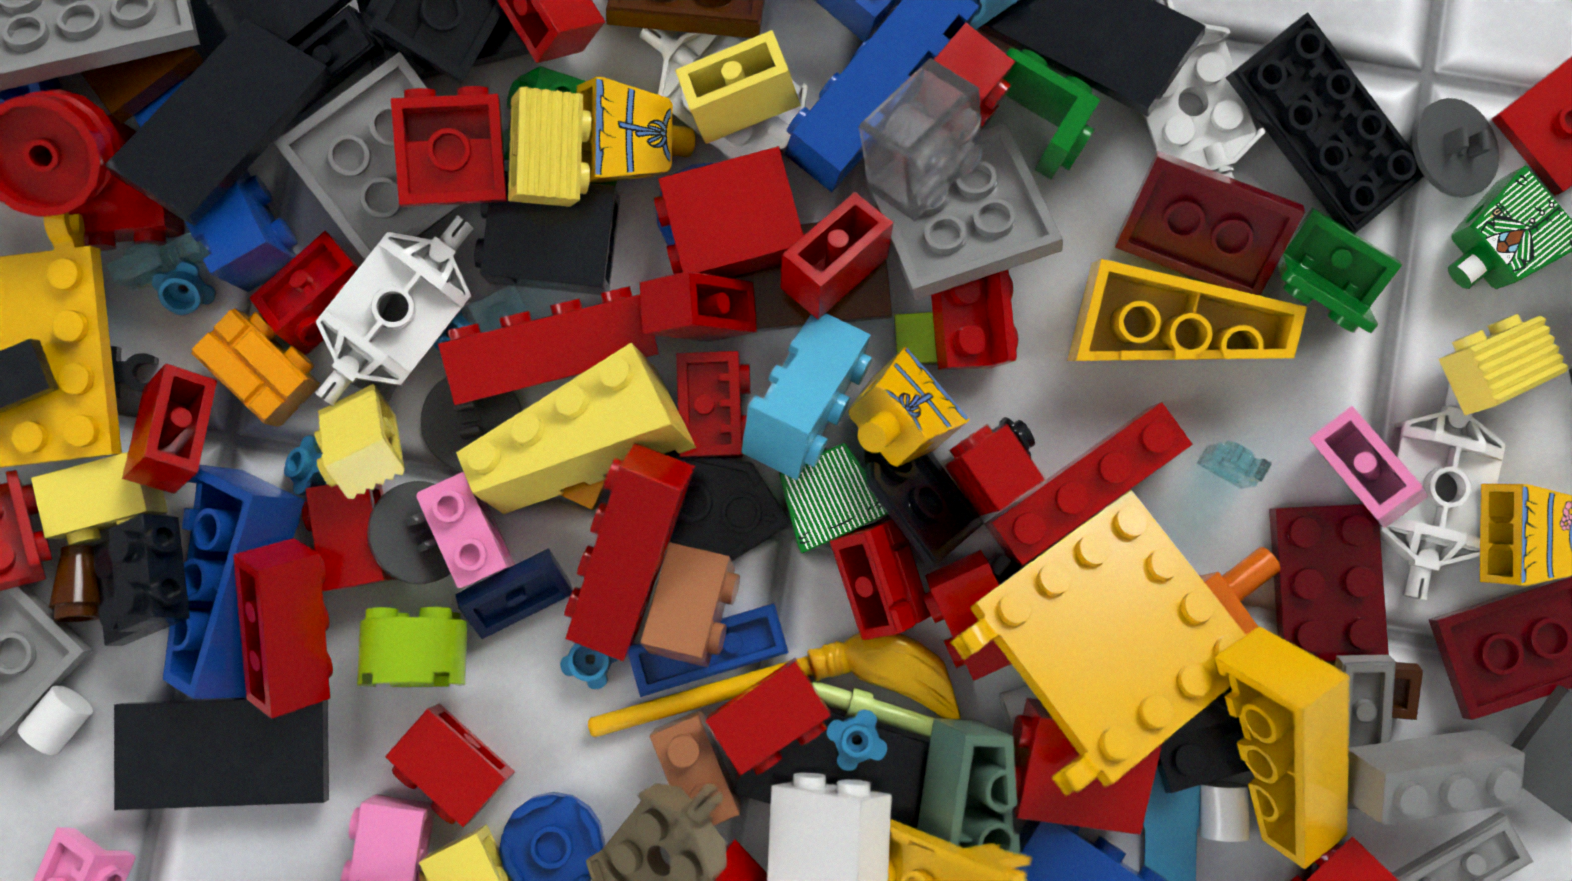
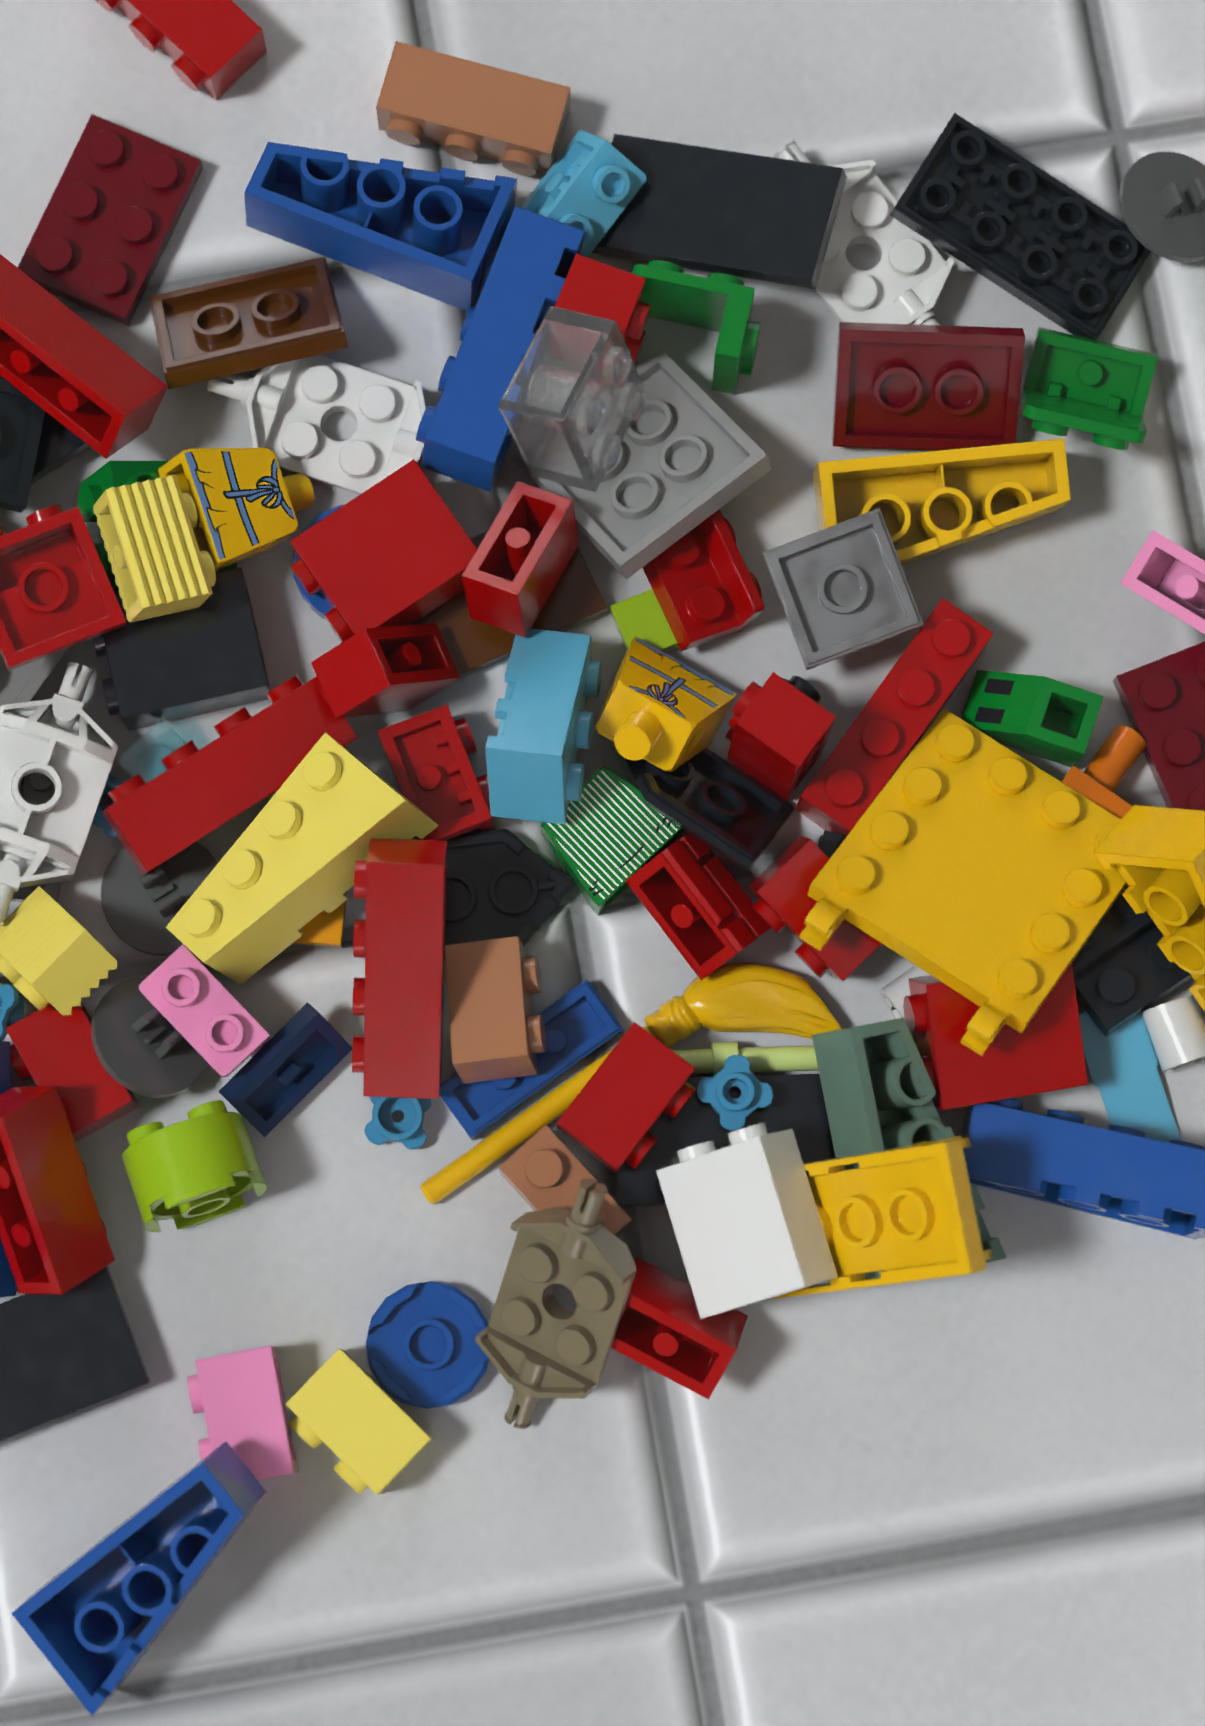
camera: 25 degrees left, 5 degrees down
(448, 765) = (278, 1290): red brick -> none
(738, 87) = (345, 409): light yellow brick -> none
(1085, 368) = (843, 589): none -> flat silver tile
(1200, 518) = (1033, 714): none -> green slope
(1234, 464) = (1050, 642): clear light blue plate -> none

